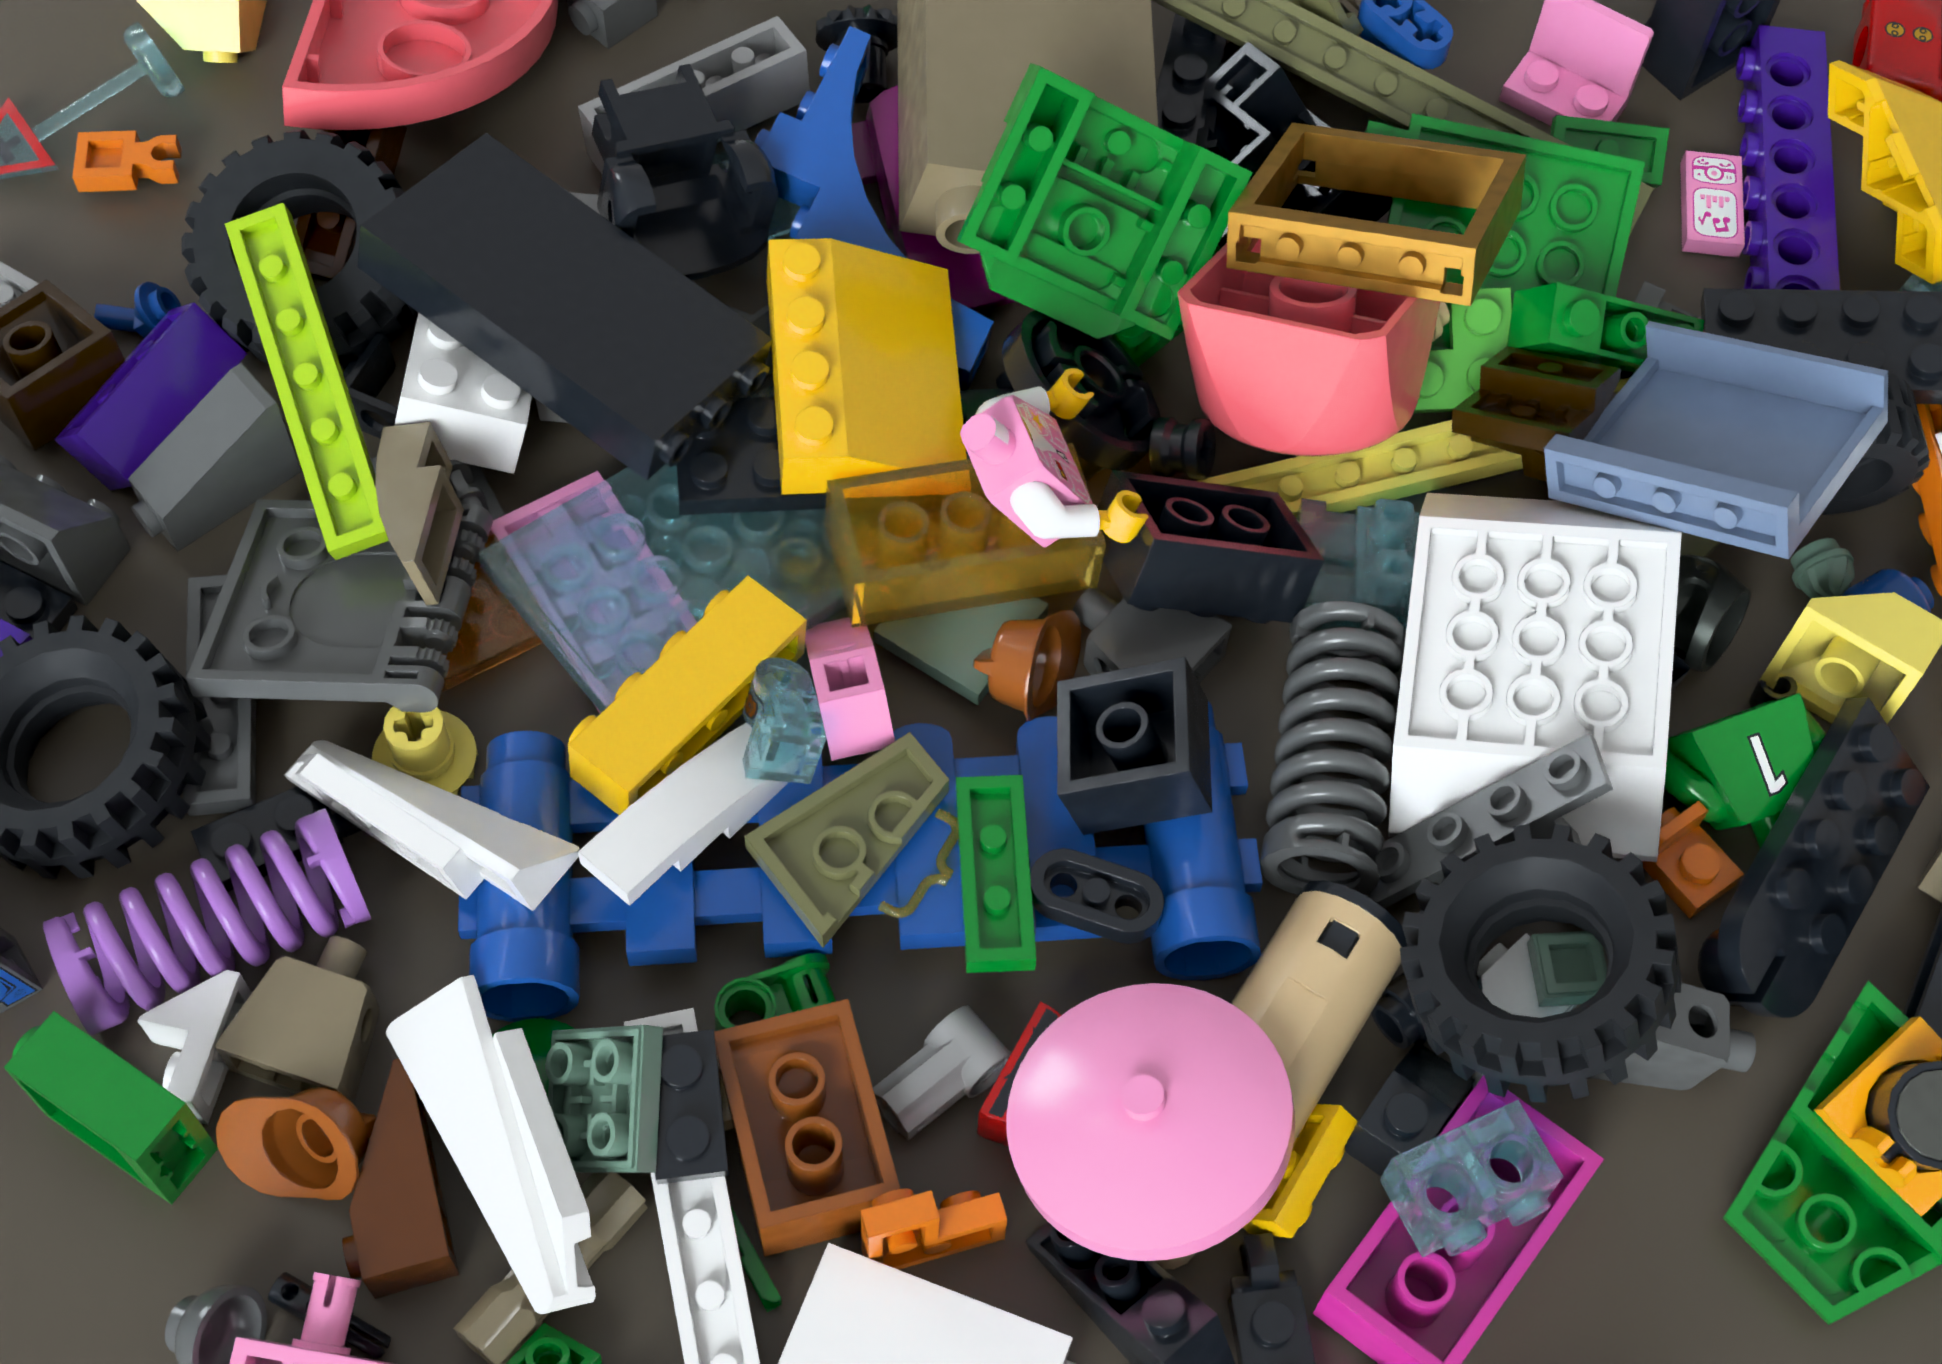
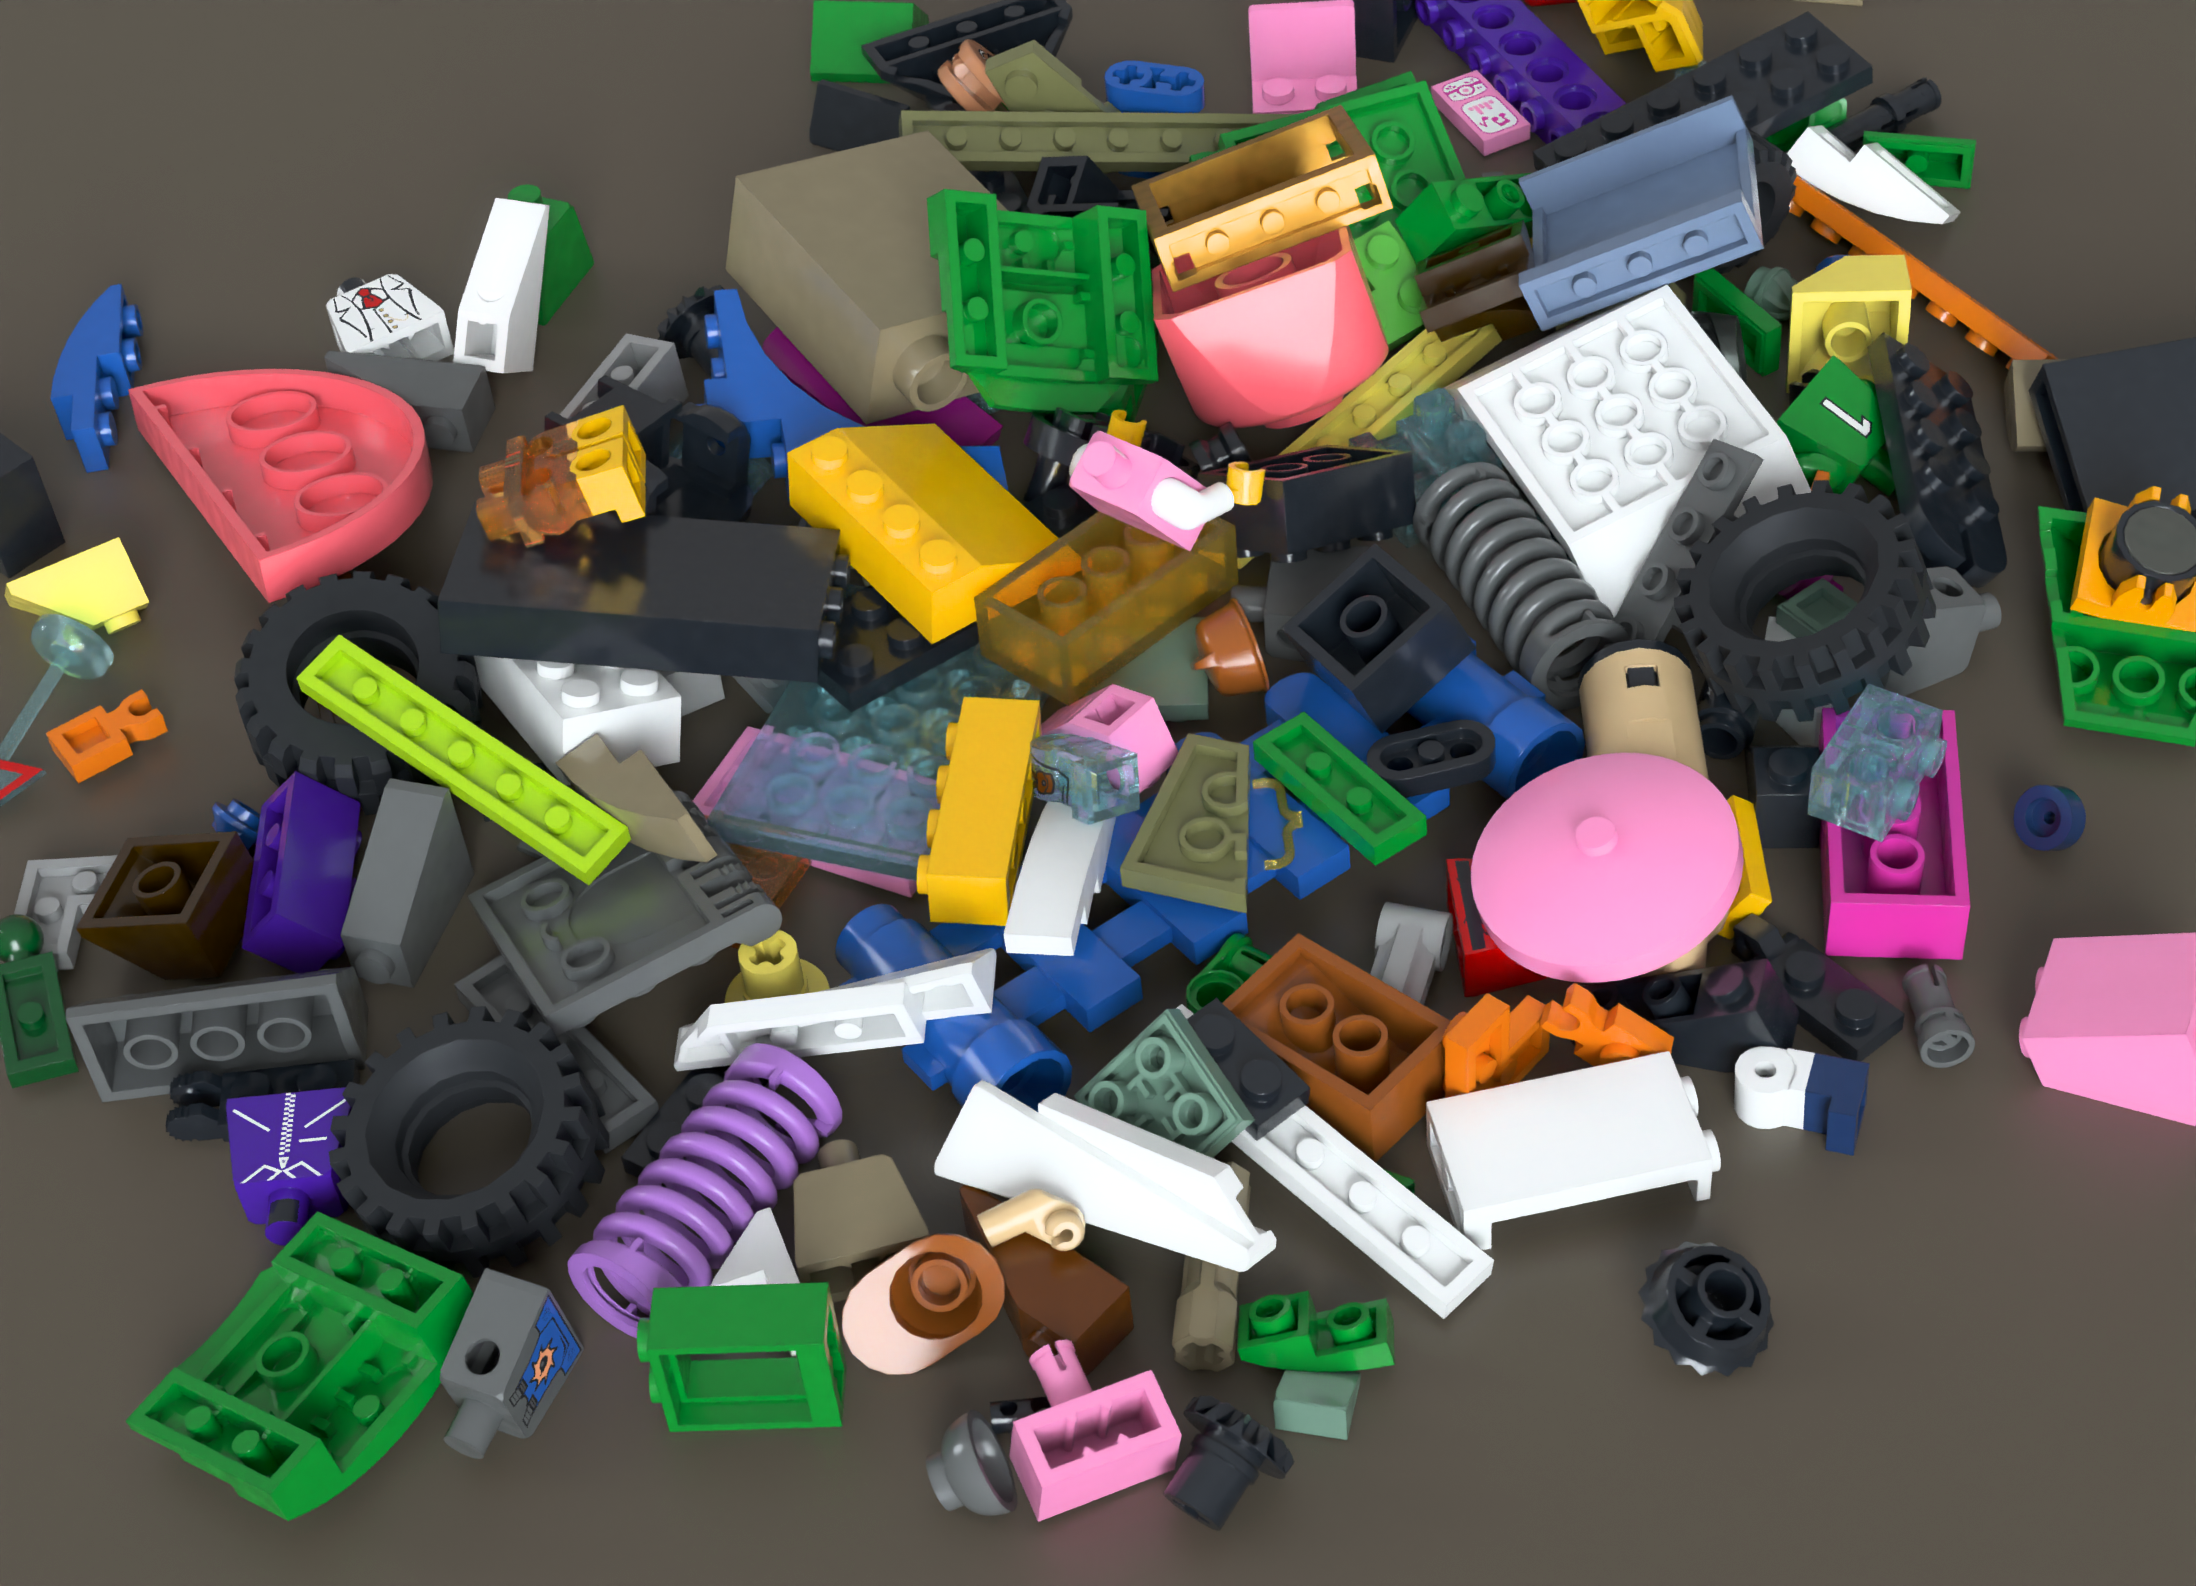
camera: 25 degrees left, 15 degrees down
(422, 1138) = (1038, 1215): none -> tan arm
(555, 163) = (564, 478): none -> hips
(1042, 1289) = (1602, 1034): none -> orange plate
(1623, 1314) = (2049, 817): none -> dark blue tile
(1769, 599) = (1759, 329): none -> green tile

